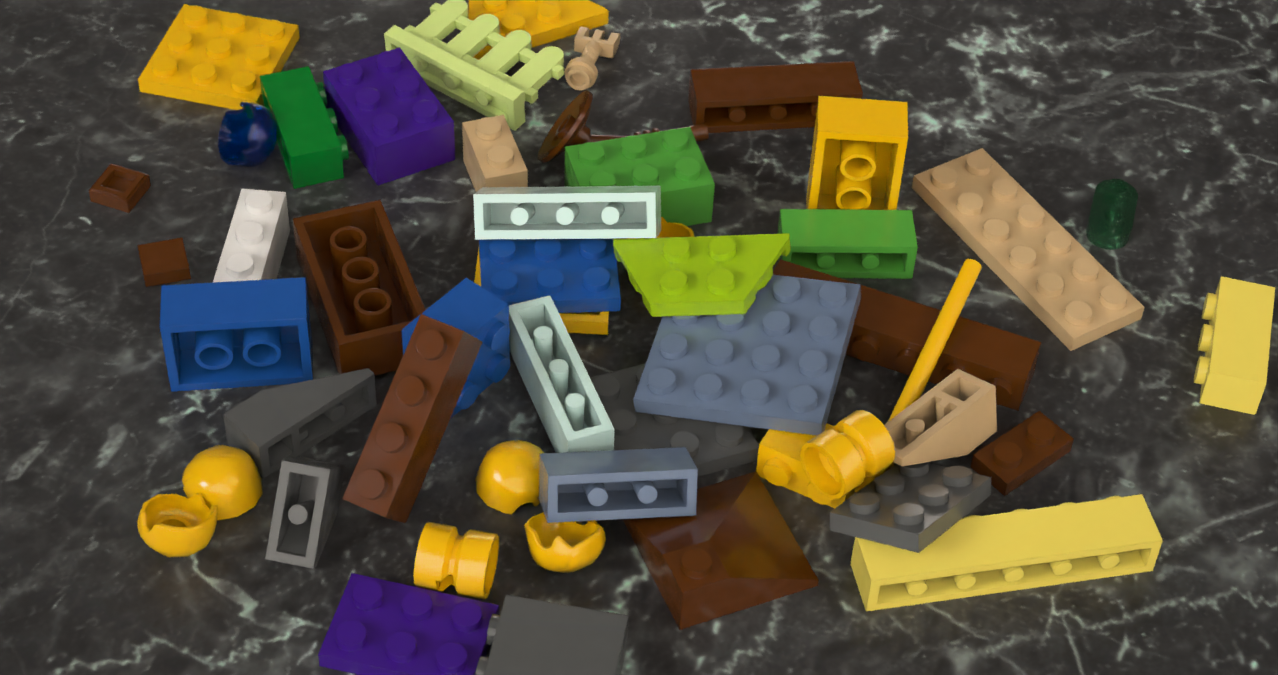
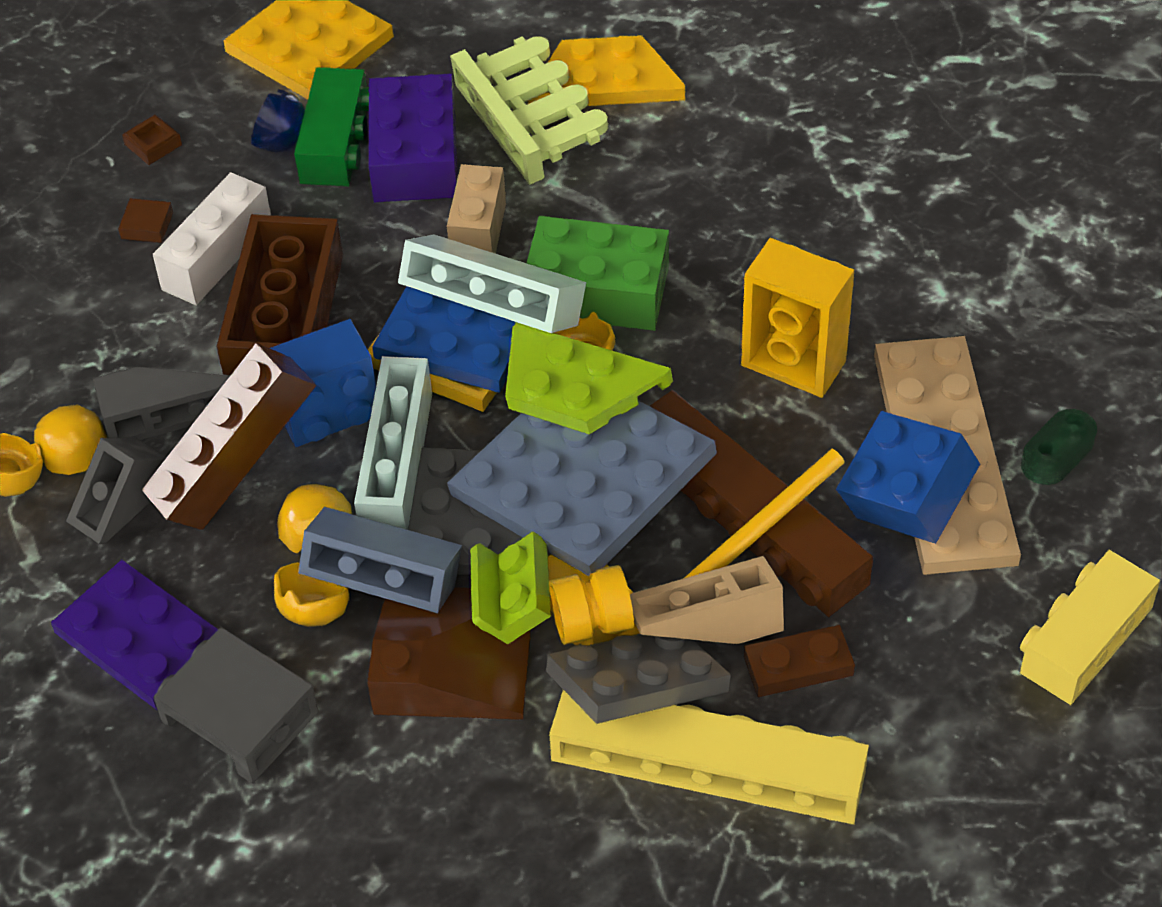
camera: 30 degrees right, 5 degrees up
(236, 334) = (147, 307): blue brick -> none
(456, 560) = (207, 580): yellow wheel -> none
(571, 129) = (569, 205): reddish brown dish -> none
(581, 71) = (619, 144): tan hinge -> none
(757, 468) = (510, 587): none -> lime bracket
(767, 95) = (753, 211): reddish brown brick -> none
(851, 241) = (759, 393): bright green brick -> none
(1028, 268) = (908, 476): none -> blue brick

